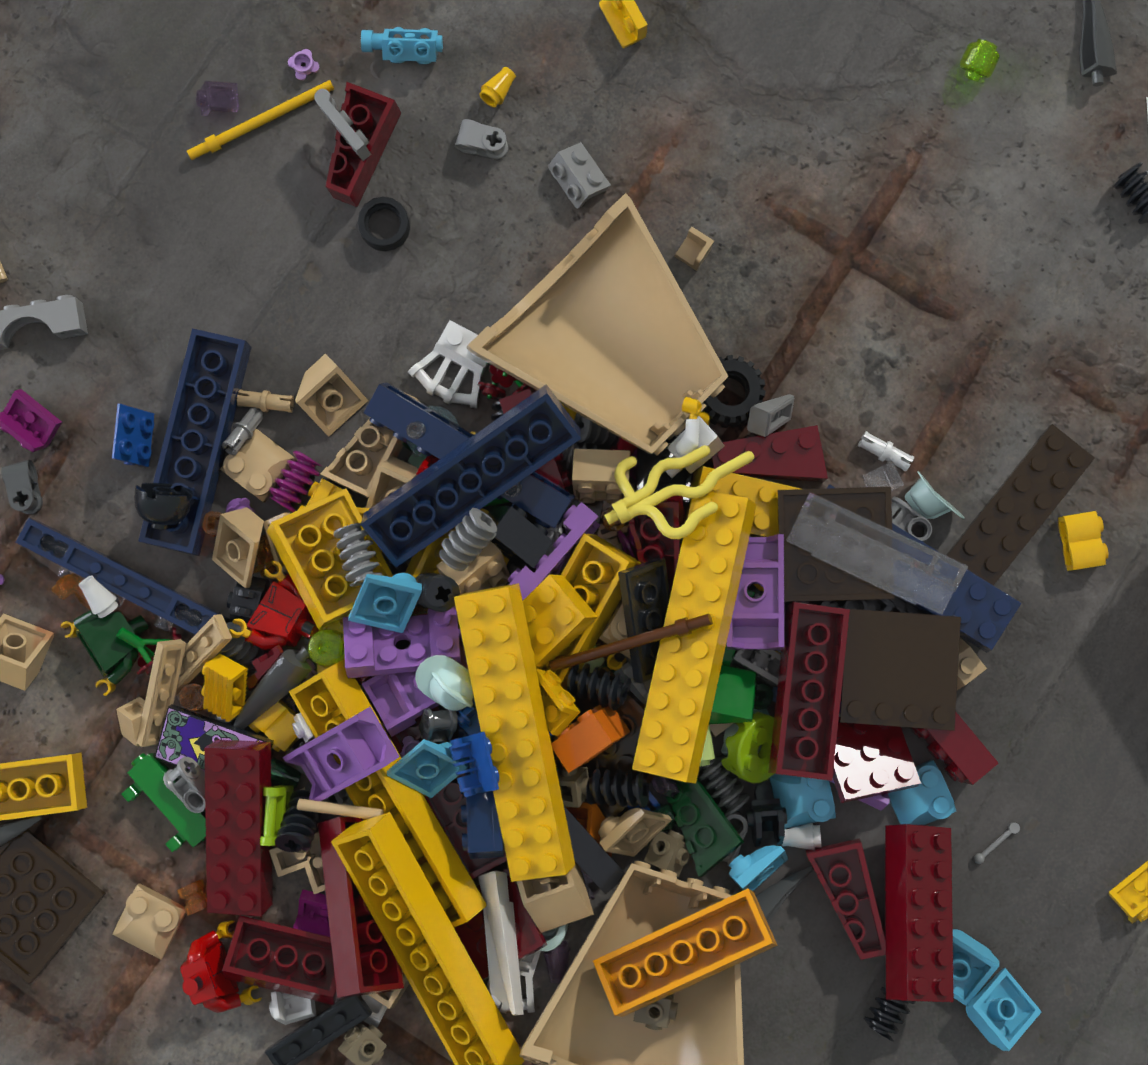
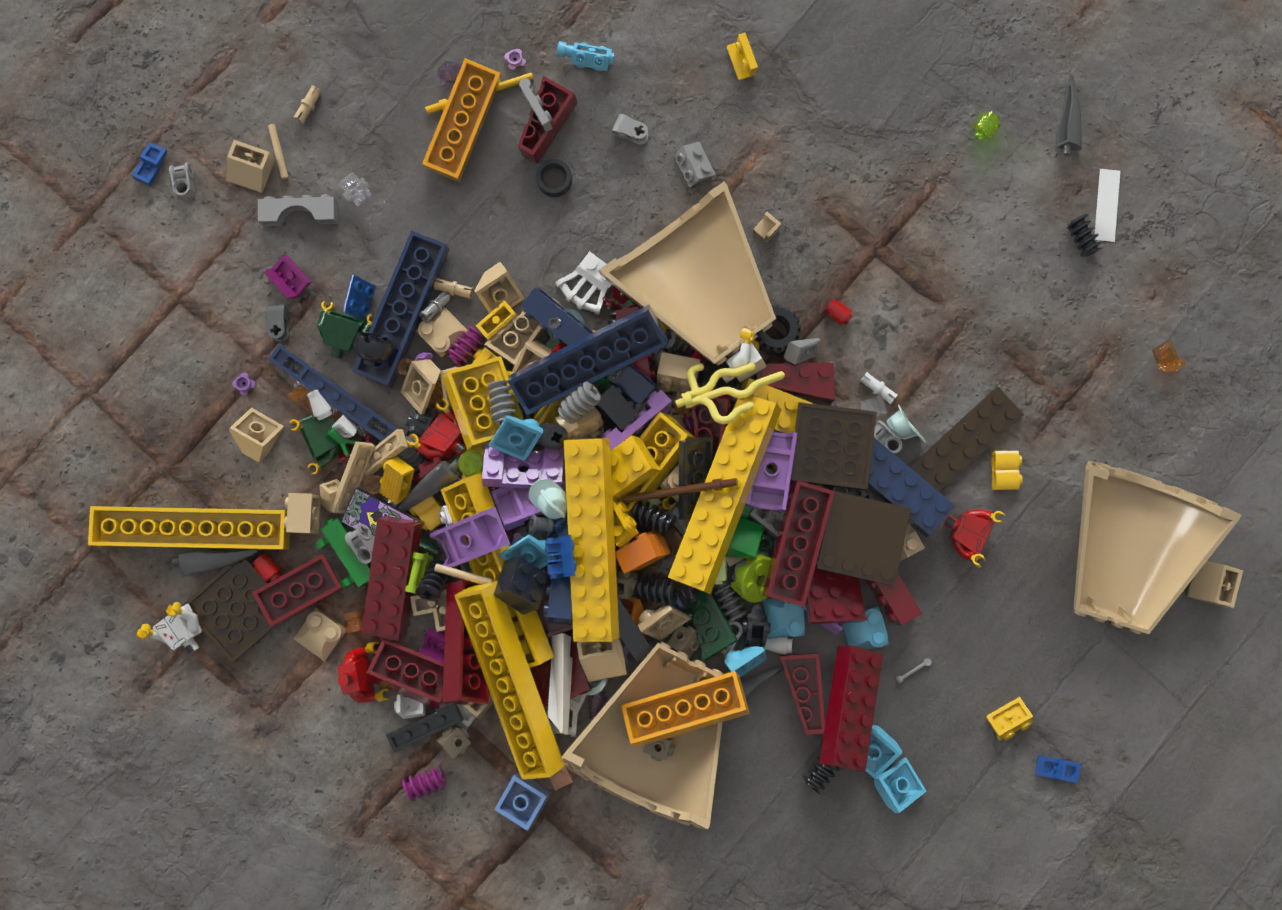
camera: 10 degrees right, 0 degrees up
(19, 171) = (307, 104): none -> tan pin
(59, 840) = (266, 568): none -> red brick
(98, 755) = (302, 513): none -> tan brick
(104, 281) = (355, 189): none -> clear brick
(107, 866) = (297, 591): none -> dark red brick
(112, 483) = (340, 329): none -> dark green torso
(140, 622) = (345, 427): none -> white slope
(241, 161) = (462, 120): none -> light orange brick
(332, 438) = (496, 320): none -> yellow brick
(424, 812) = (521, 585): none -> black brick
(497, 87) = (646, 95): yellow cone -> none
(813, 353) = (838, 312): none -> red brick
(876, 554) = (859, 455): clear slope -> none
(1047, 636) = (971, 532): none -> red torso

